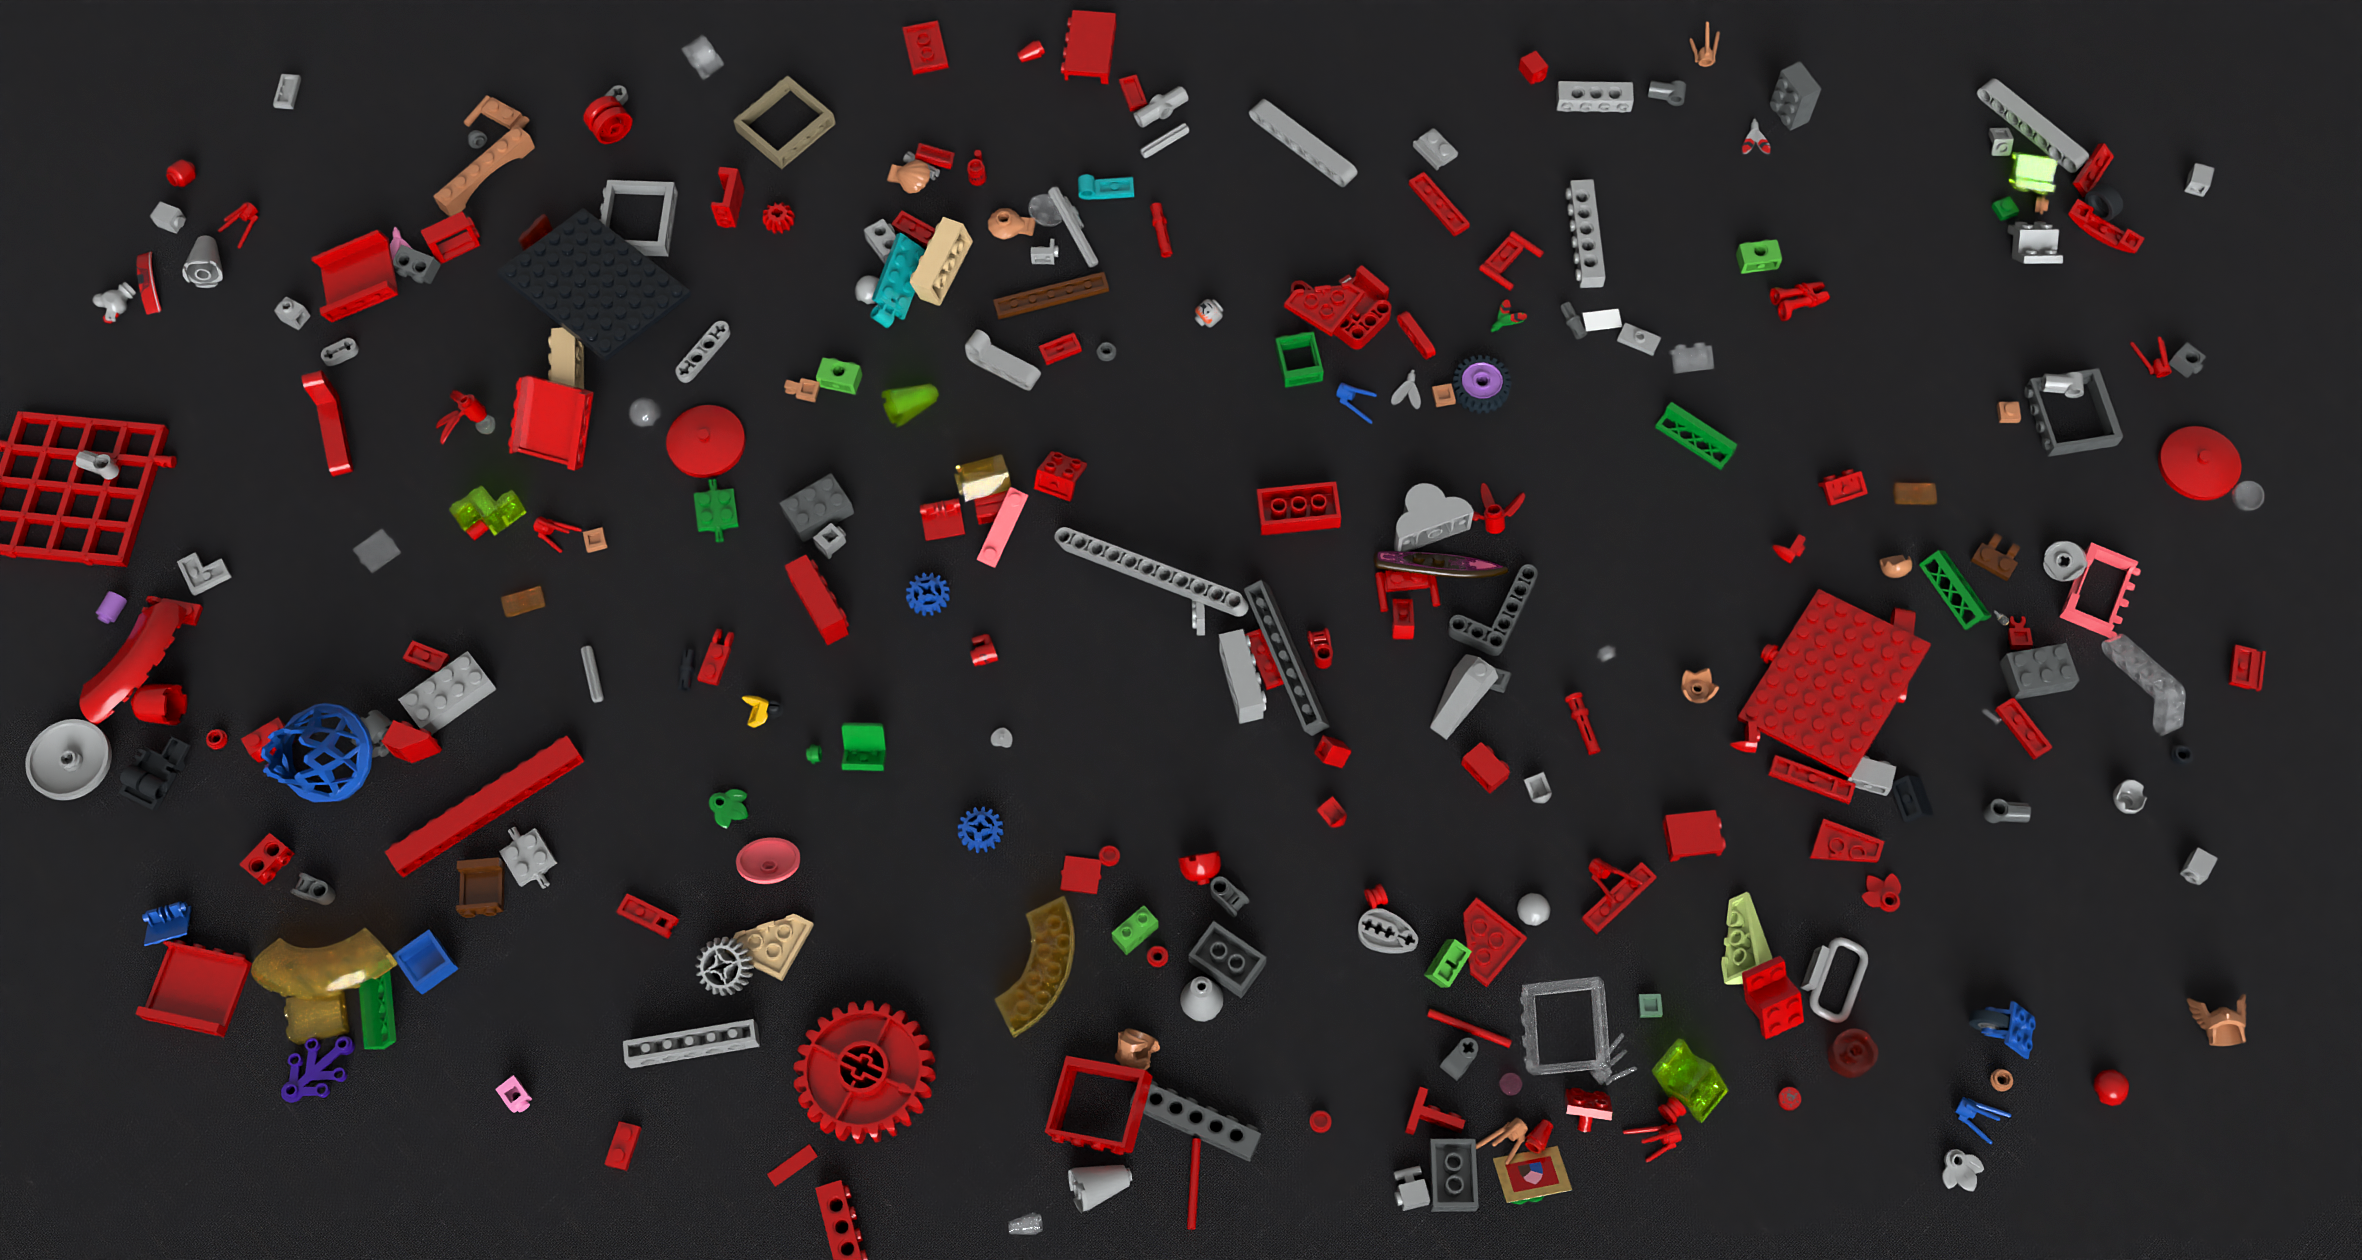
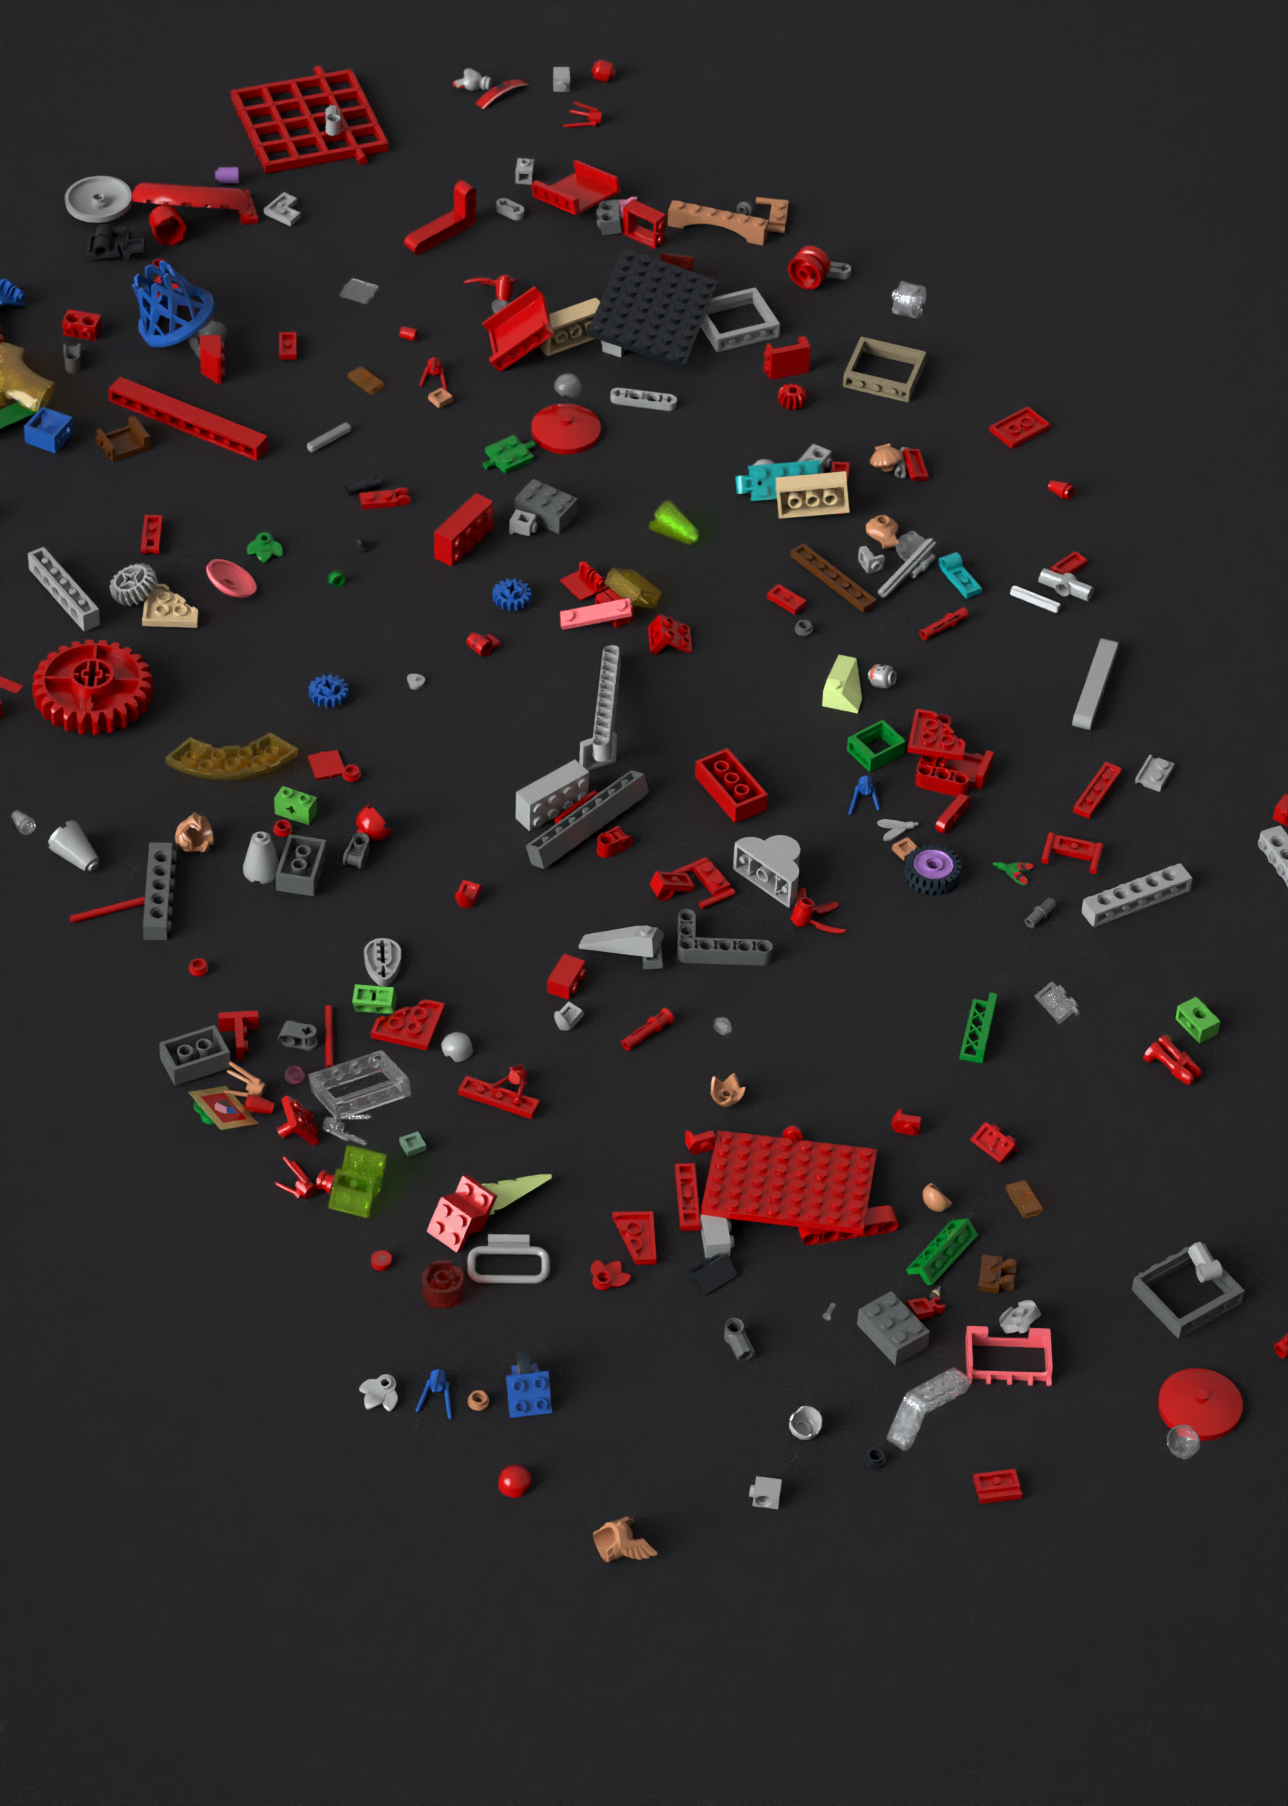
camera: 60 degrees right, 20 degrees down
(203, 263) = (534, 109): light grey cone -> none
(287, 91) = (714, 96): light grey plate -> none
(447, 693) = (264, 365): light grey brick -> none
(492, 513) = (425, 330): clear neon green bracket -> none
(528, 857) = (161, 457): light grey plate -> none
(758, 714) = (351, 535): yellow plate -> none
(804, 390) = (647, 465): nougat plate -> none
(847, 382) = (672, 479): bright green brick -> none
(864, 746) = (357, 603): green bracket -> none
(976, 170) = (919, 493): red piece -> none
(1000, 362) = (748, 564): light grey beam -> none
(1062, 1096) = (136, 809): red window -> none
(1089, 45) = (1094, 521): red panel -> none
(1200, 352) = (843, 686): none -> yellowish green wedge
(1332, 751) = (522, 877): red panel -> none
(1376, 896) = (409, 942): red wheel -> none
(1412, 1193) = (167, 1032): light grey brick -> none
(1437, 564) = (736, 890): dark brown piece -> none
(1602, 319) = (1058, 936): white sticker -> none
(1639, 339) = (1054, 964): light grey plate -> none
(1693, 834) = (585, 1128): red panel -> none
(2008, 412) = (1158, 1246): nougat plate -> none
(2023, 728) = (829, 1333): red plate -> none

